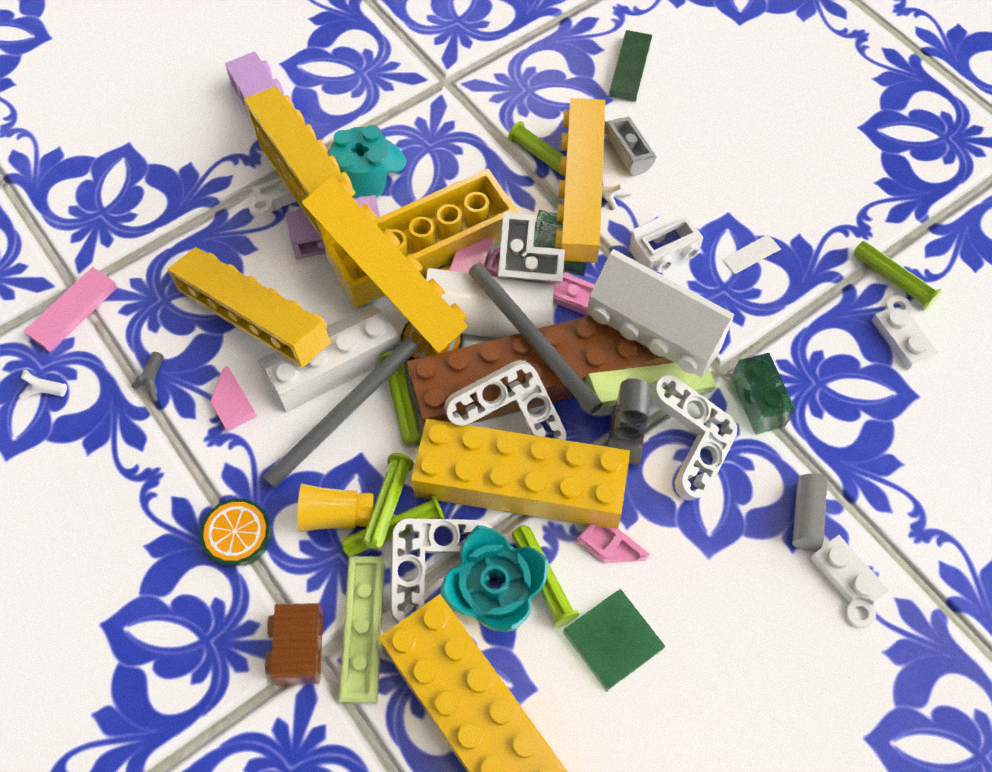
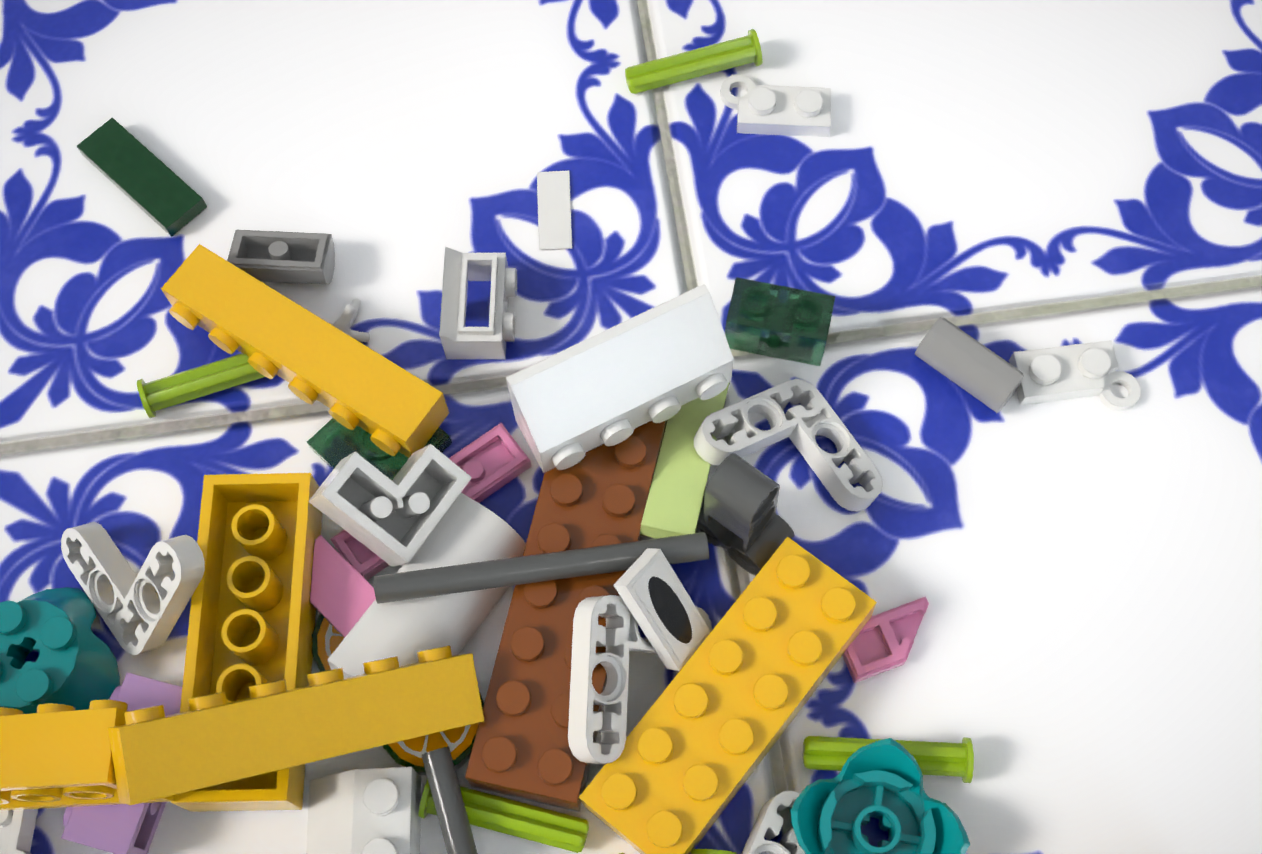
camera: 60 degrees left, 5 degrees up
(419, 175) = (134, 607): none -> white beam
(547, 403) = (662, 608): none -> white tile
(613, 639) = (1020, 712): clear green tile -> none

